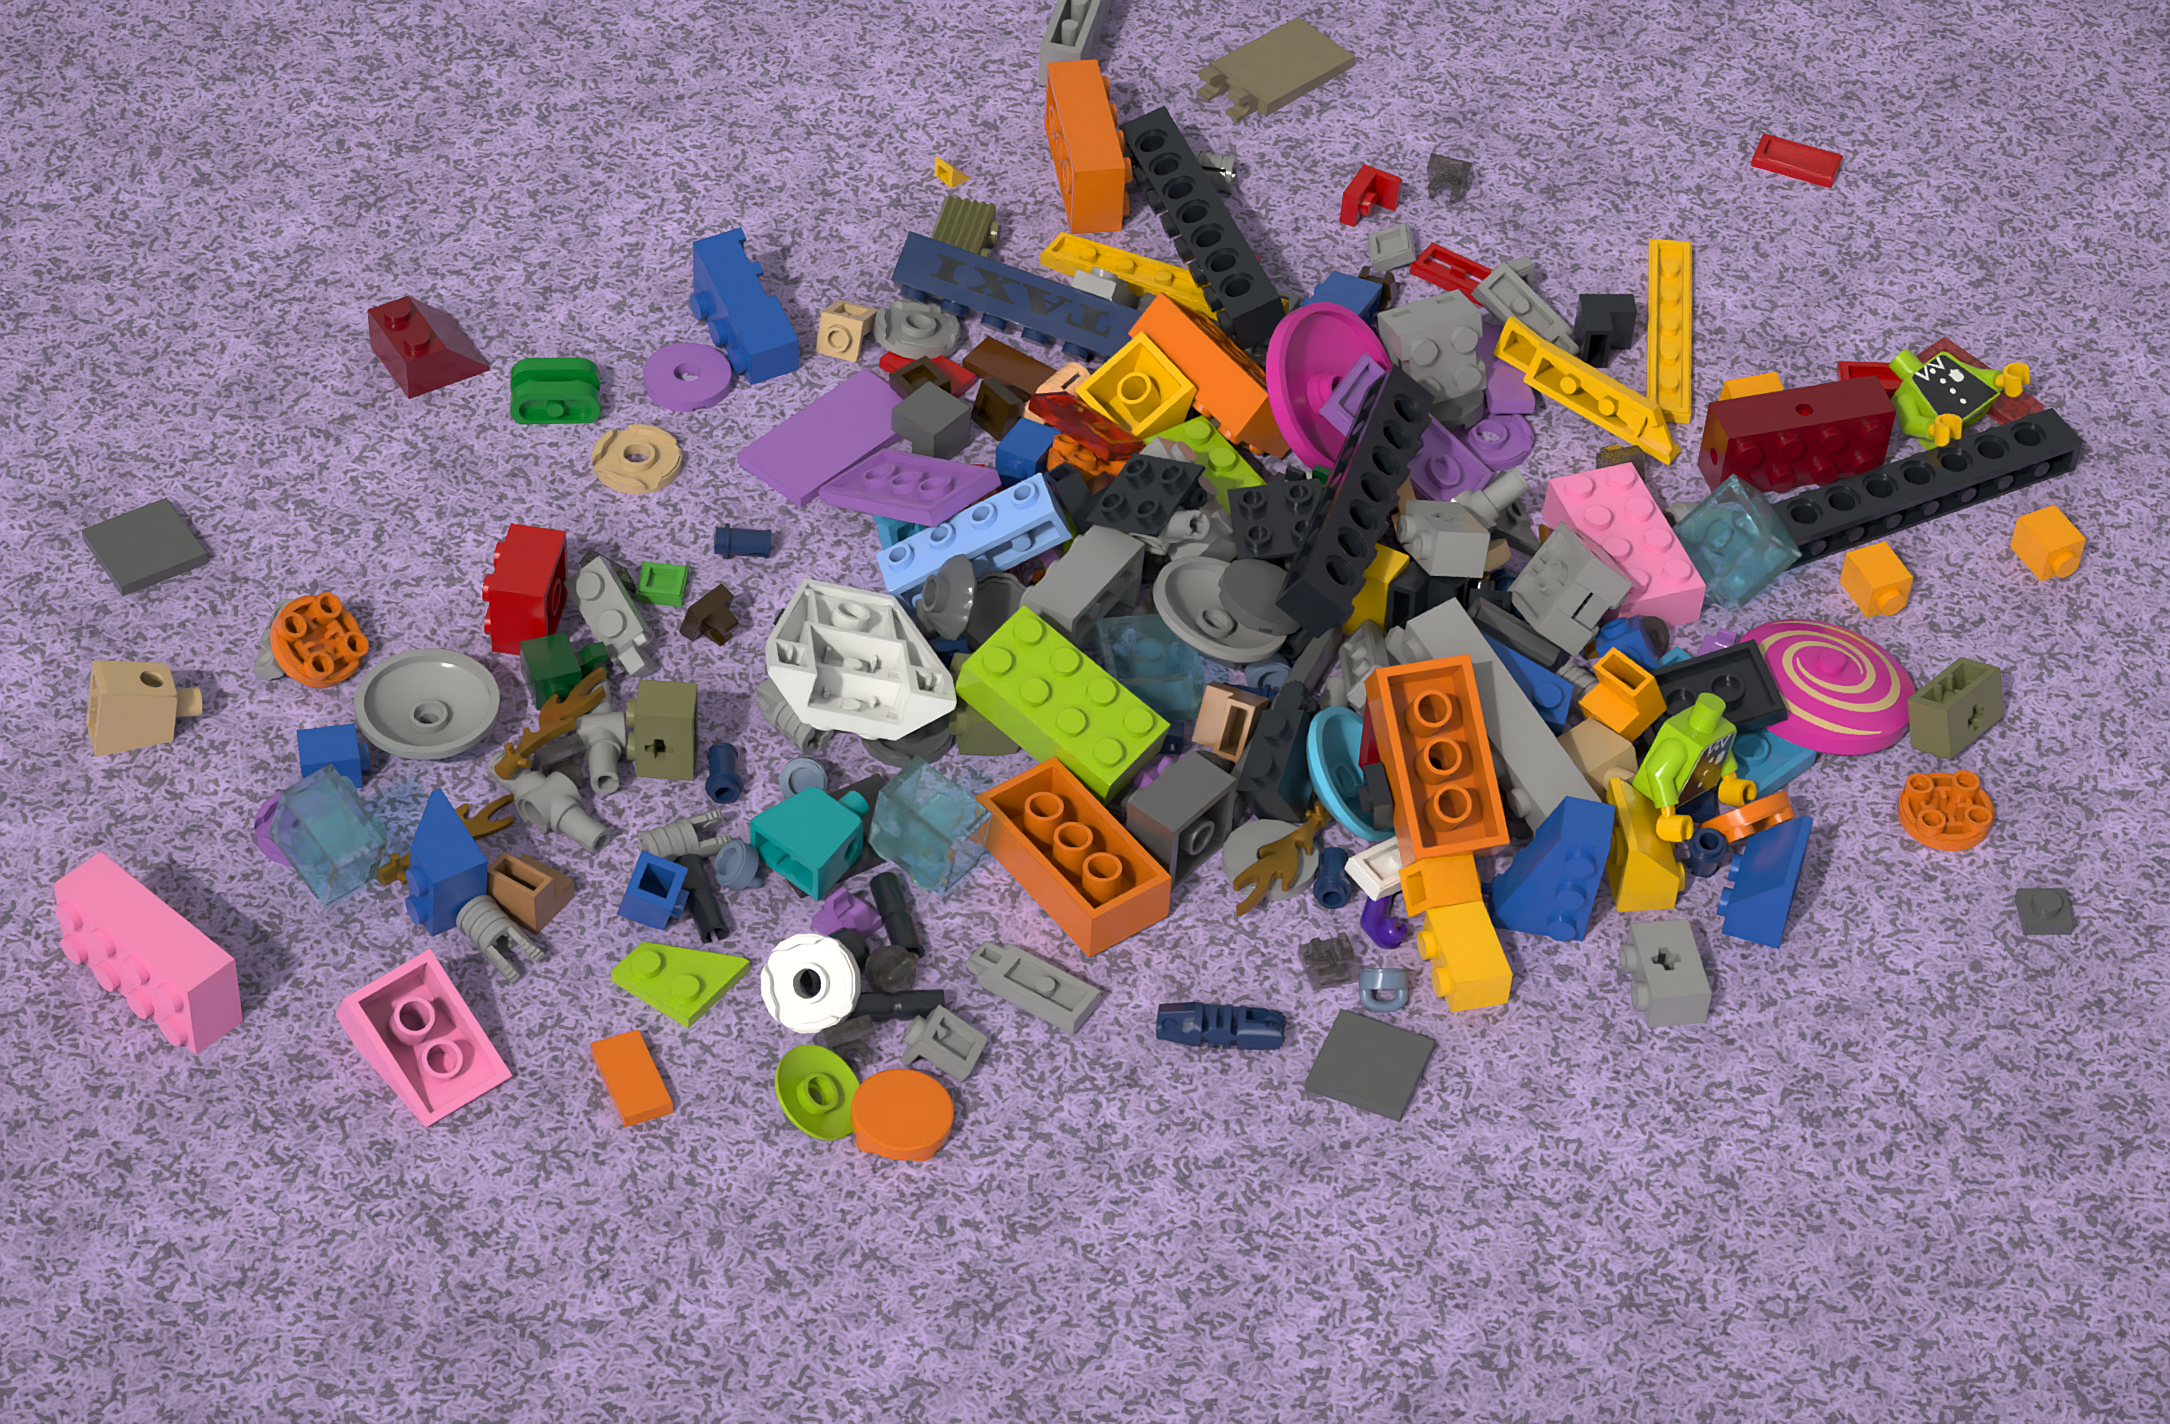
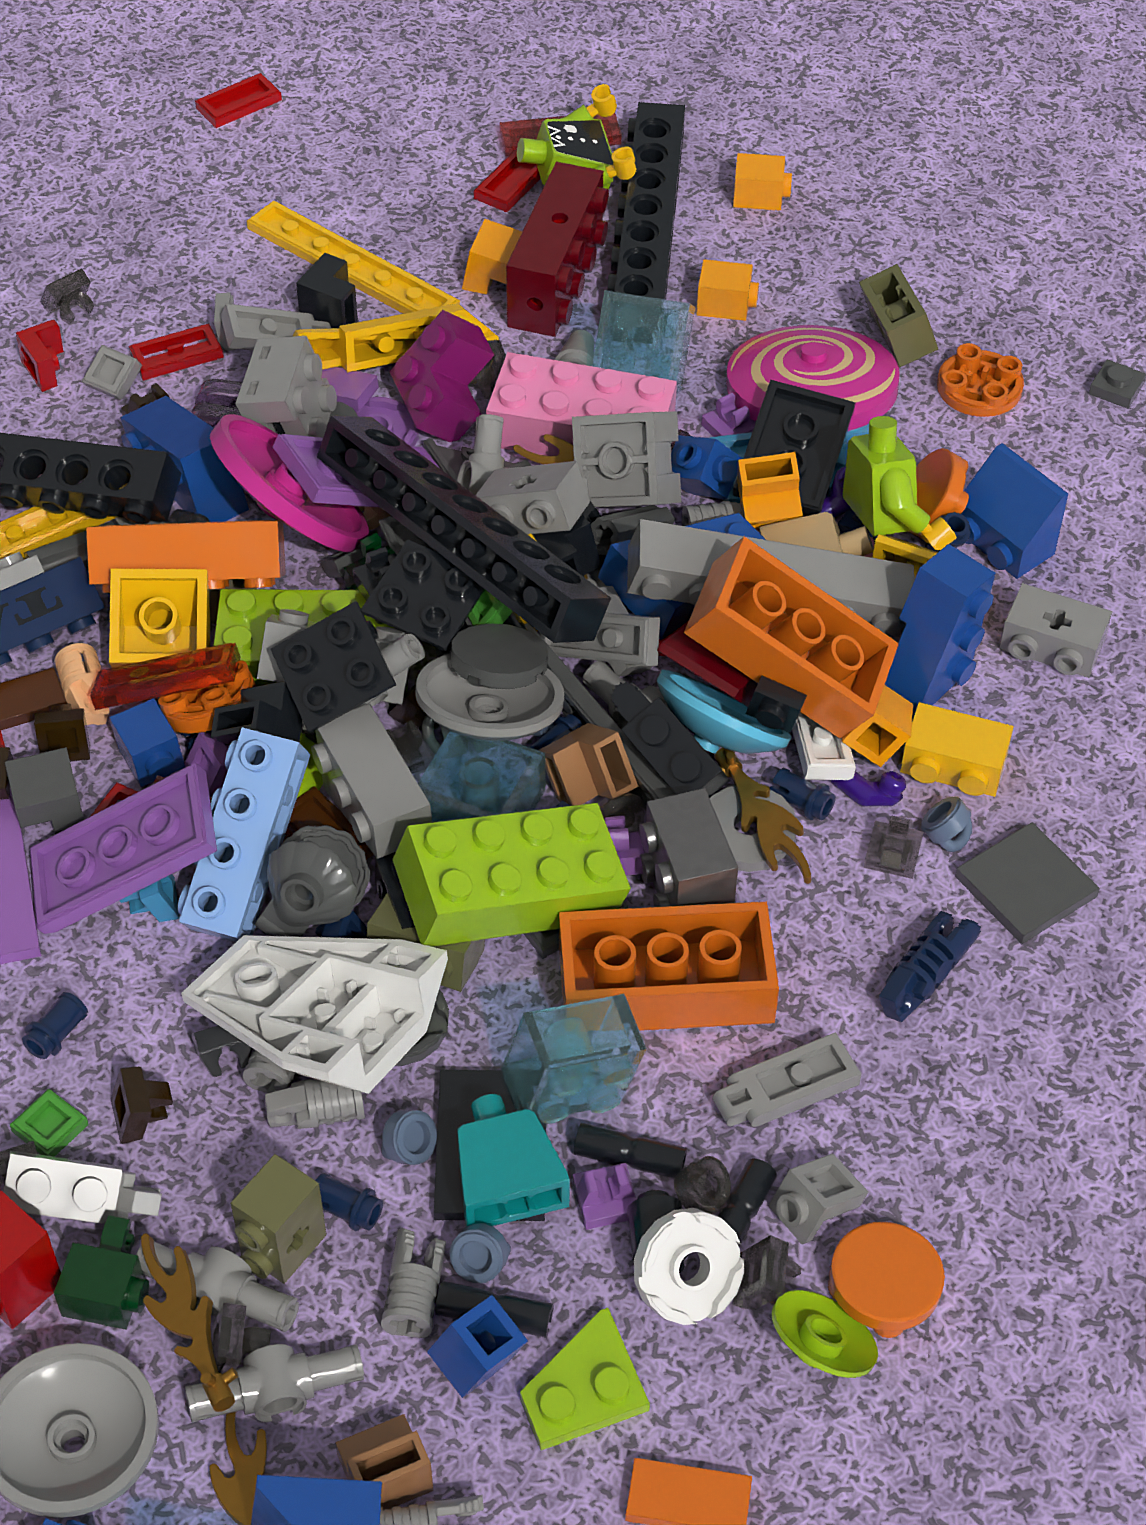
camera: 55 degrees left, 5 degrees up
(1565, 435) = (437, 375): none -> magenta brick

